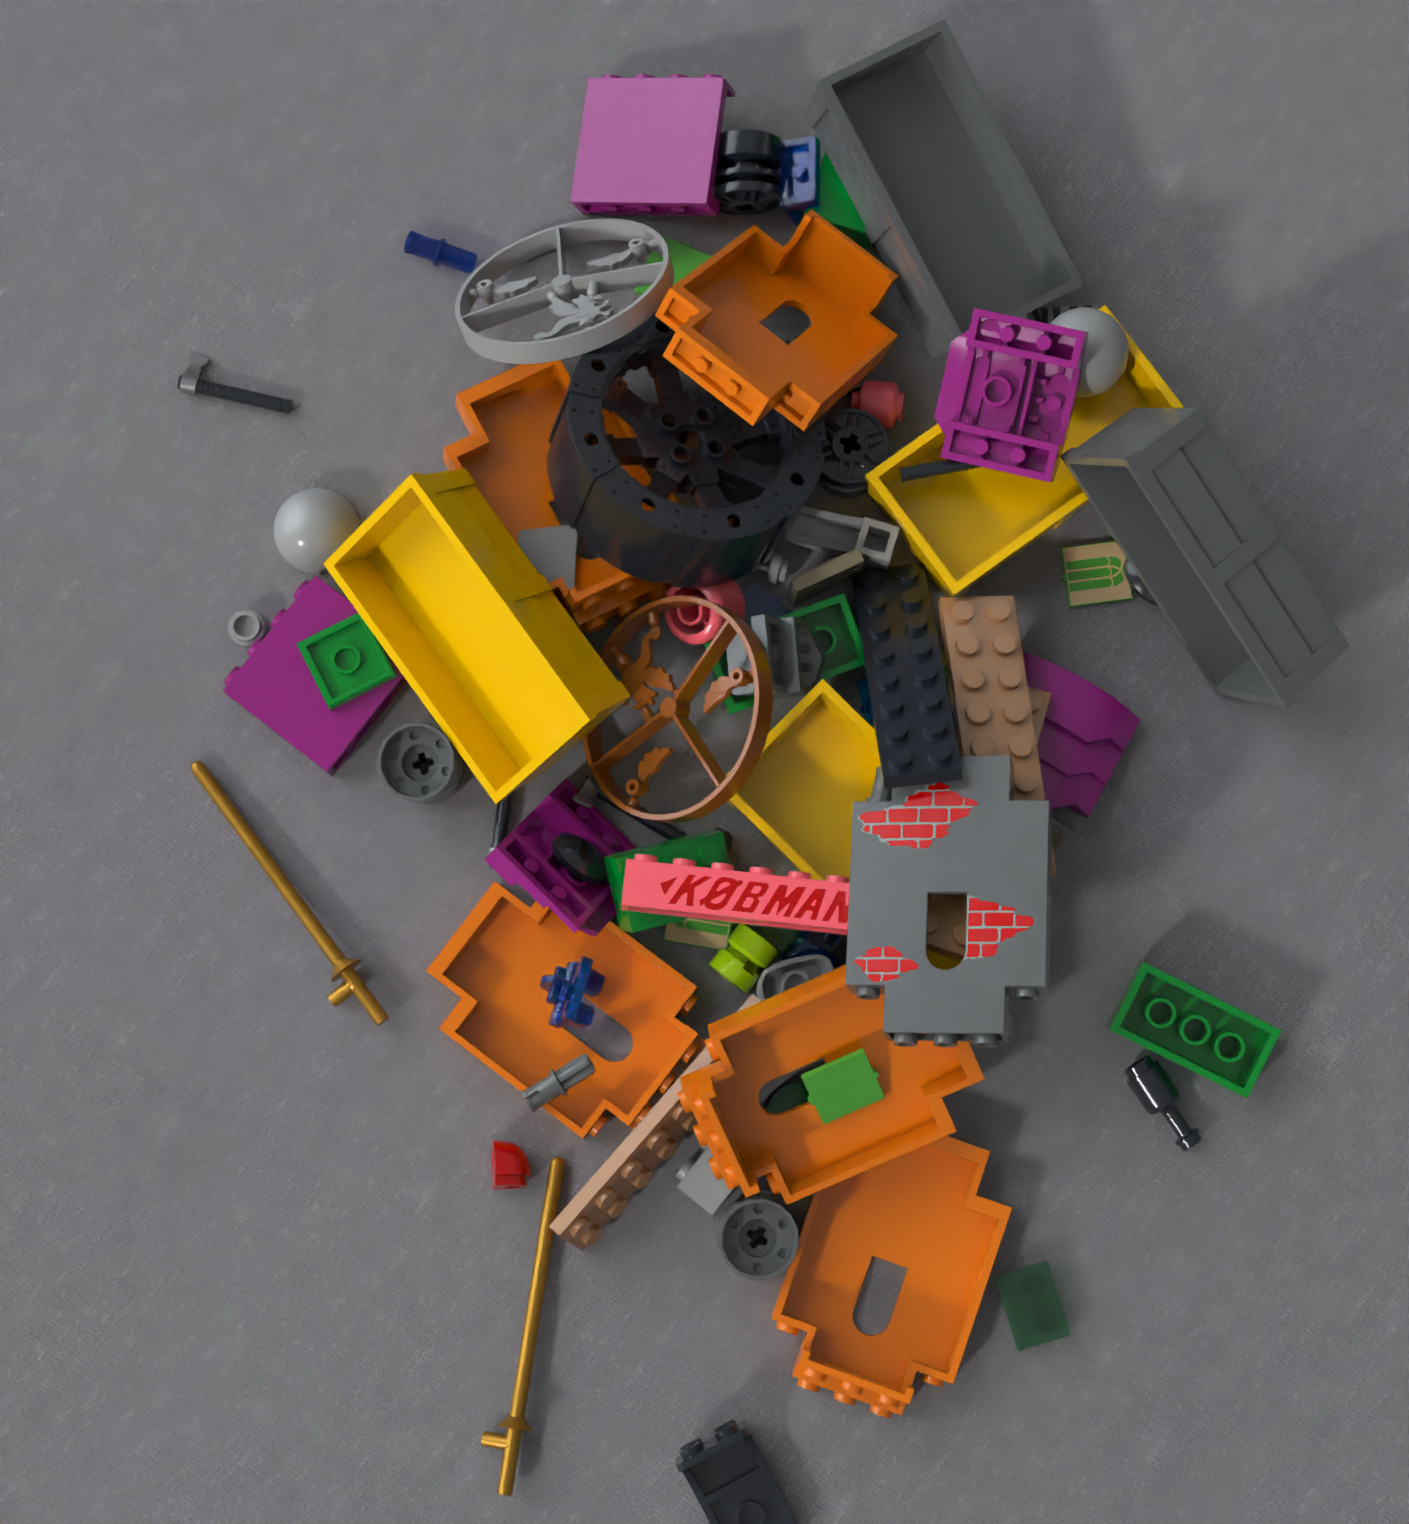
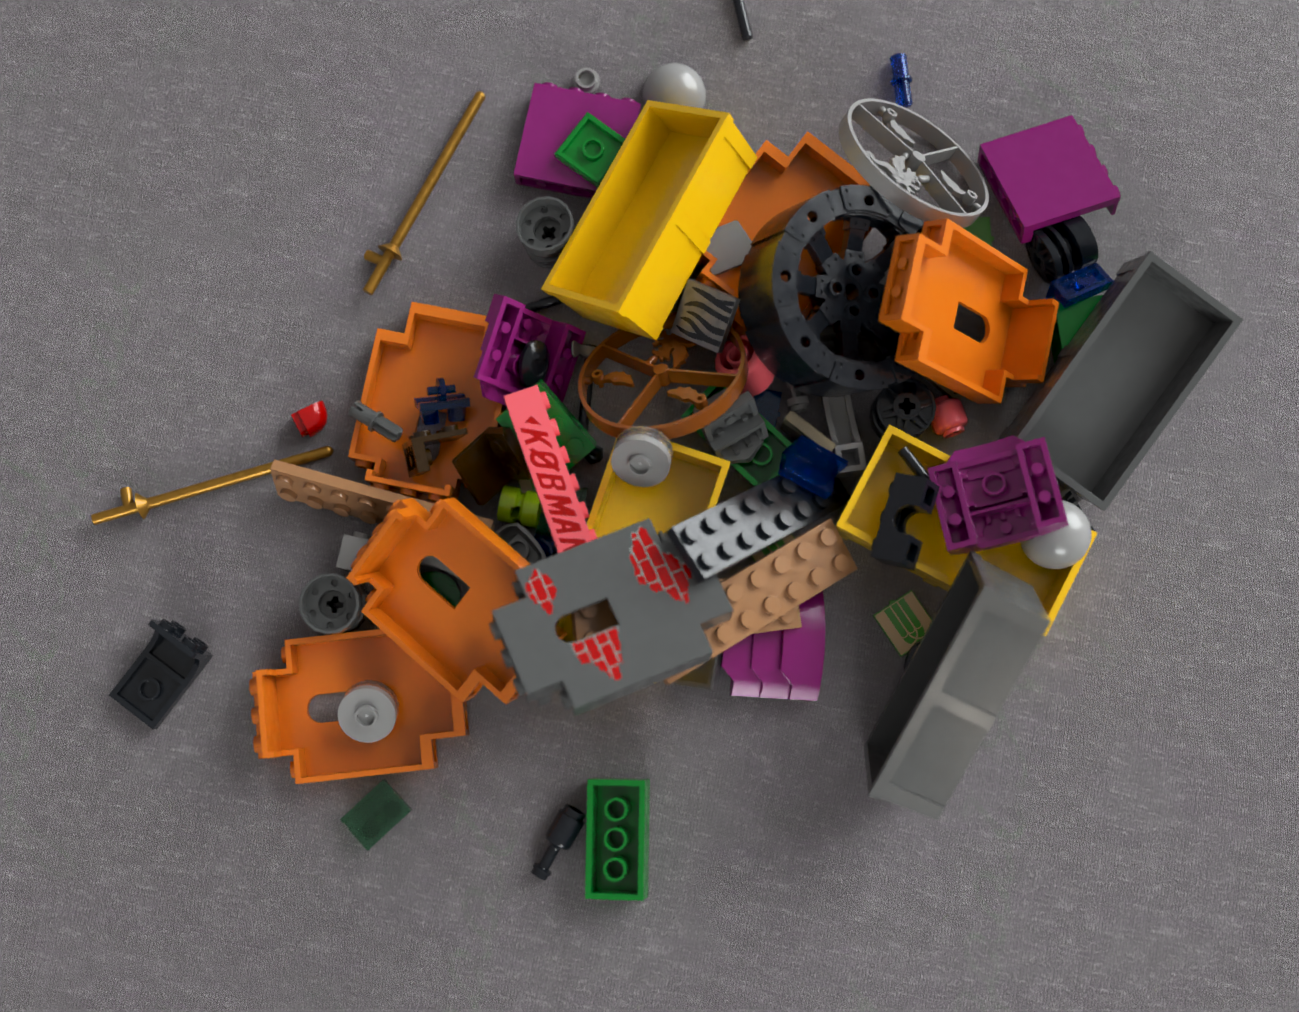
camera: 65 degrees right, 0 degrees up
(622, 1050) = (414, 449): none -> dark brown bracket
(628, 624) = (705, 315): none -> flat silver tile
(677, 963) = (491, 463): none -> dark brown bracket
(772, 776) = (642, 456): none -> light grey piece
(843, 1086) = (456, 609): bright green piece -> none
(868, 589) = (811, 466): none -> clear blue panel
(906, 1255) = (368, 711): none -> light grey piece
(964, 496) = (906, 498): none -> black arch

